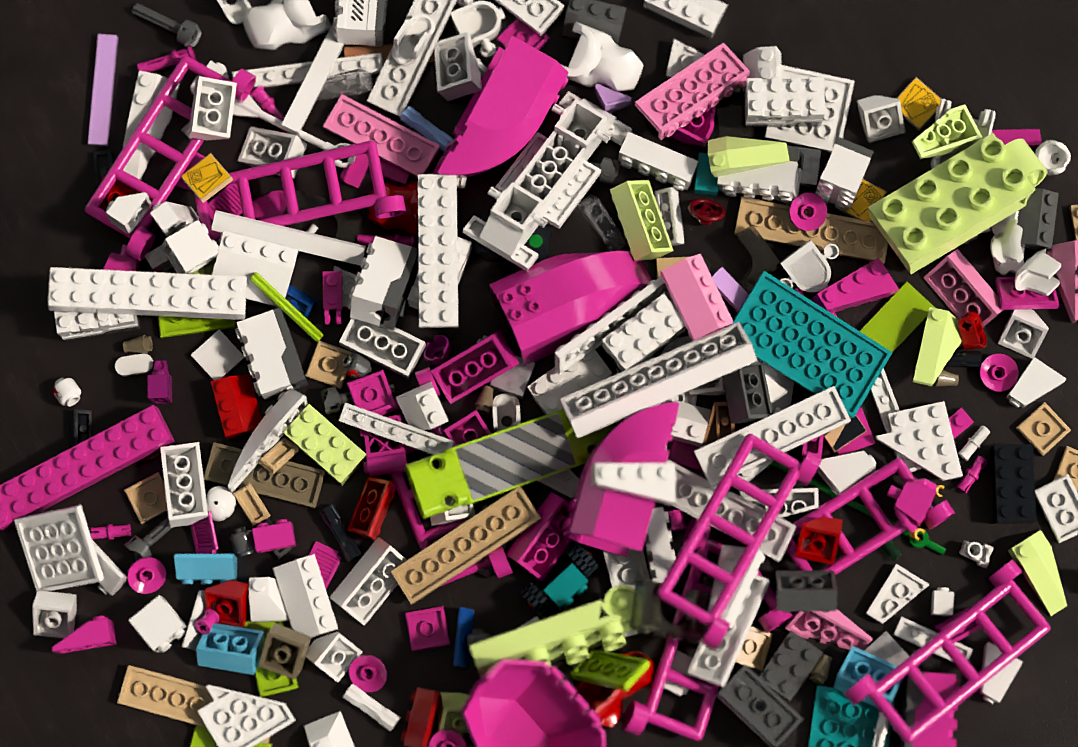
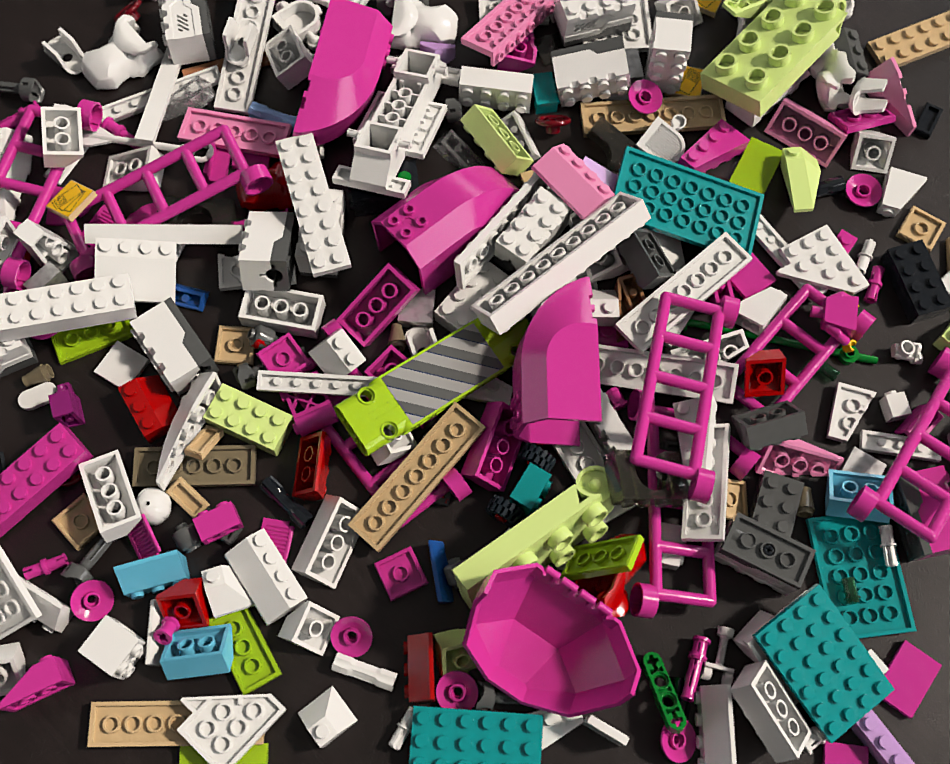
camera: 20 degrees left, 10 degrees down
(190, 248) = (64, 259): white brick -> none
(284, 651) = (256, 637): dark tan brick -> none
(286, 307) = (178, 298): lime axle -> none
(332, 295) = (222, 278): dark pink hinge -> none
(438, 350) = (338, 303): magenta hair -> none
(642, 480) = (583, 348): white wedge -> none
(736, 155) = (572, 57): yellowish green wedge -> none
(845, 434) = (747, 278): black tile -> none
(946, 379) = (819, 209): dark tan cone -> none
(972, 332) = (828, 164): red piece -> none

